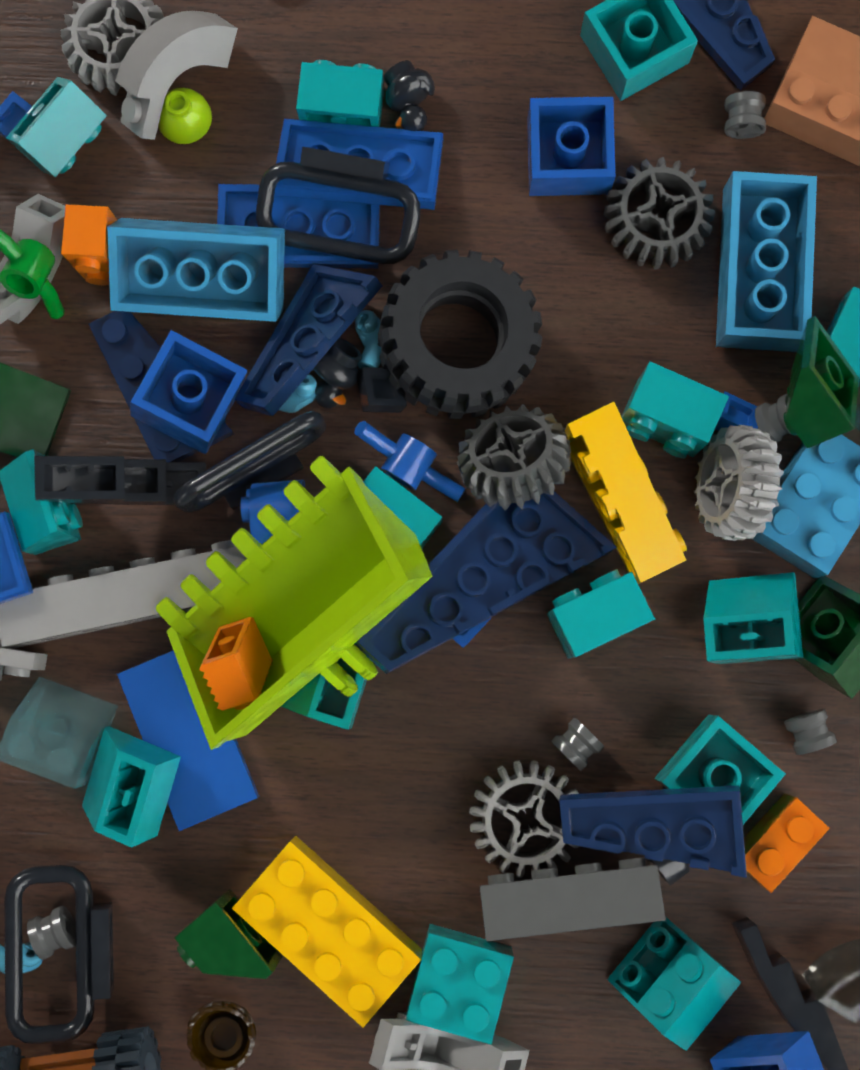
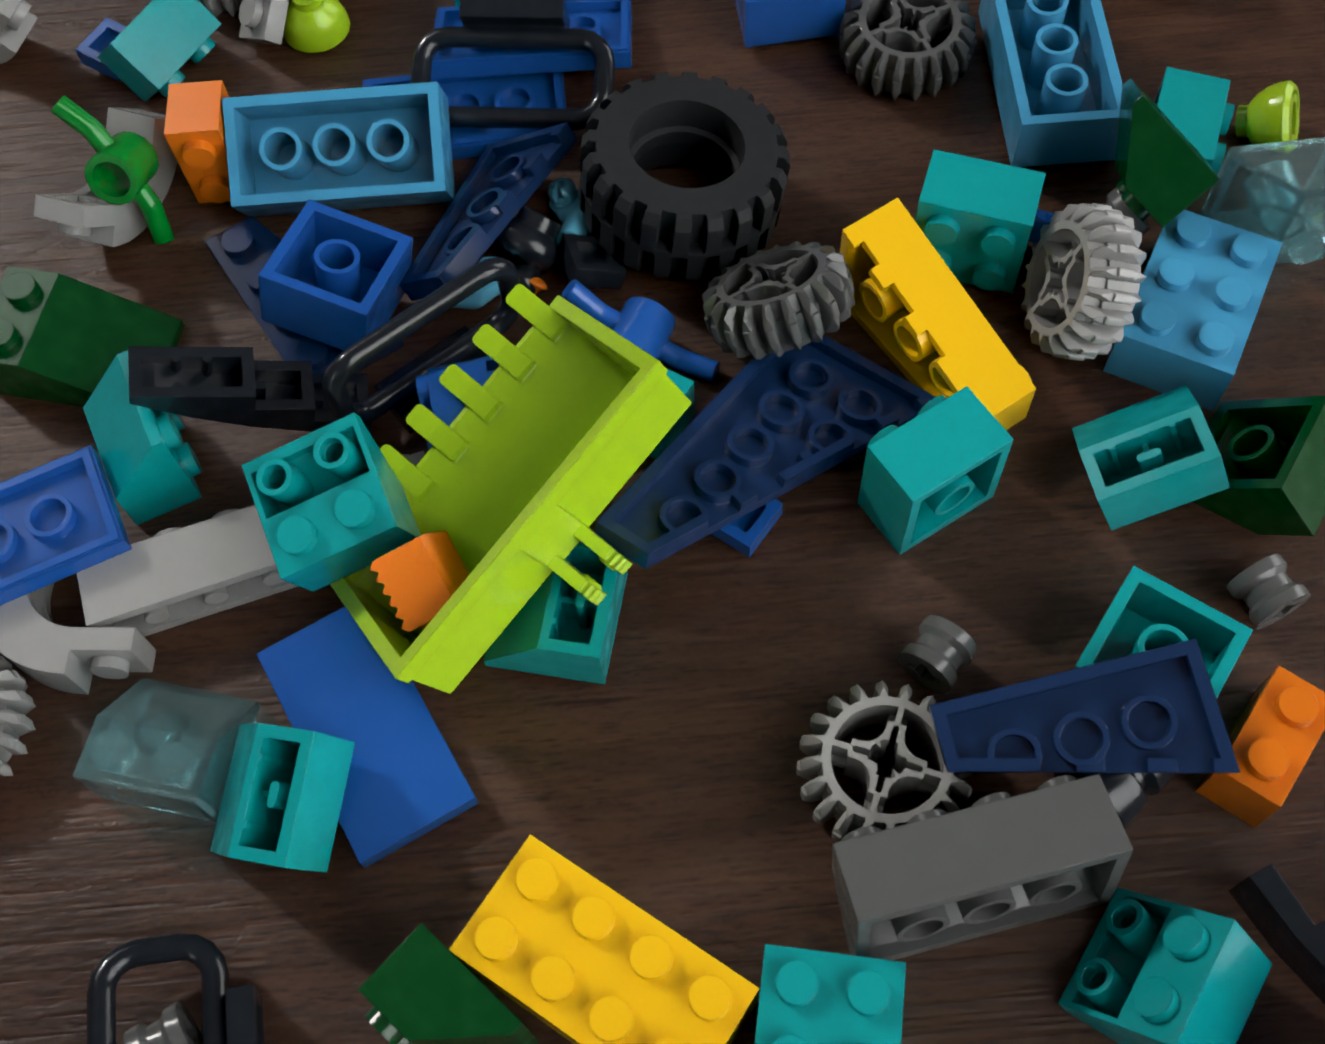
camera: 10 degrees left, 20 degrees down
(174, 601) = (329, 504): none -> teal slope

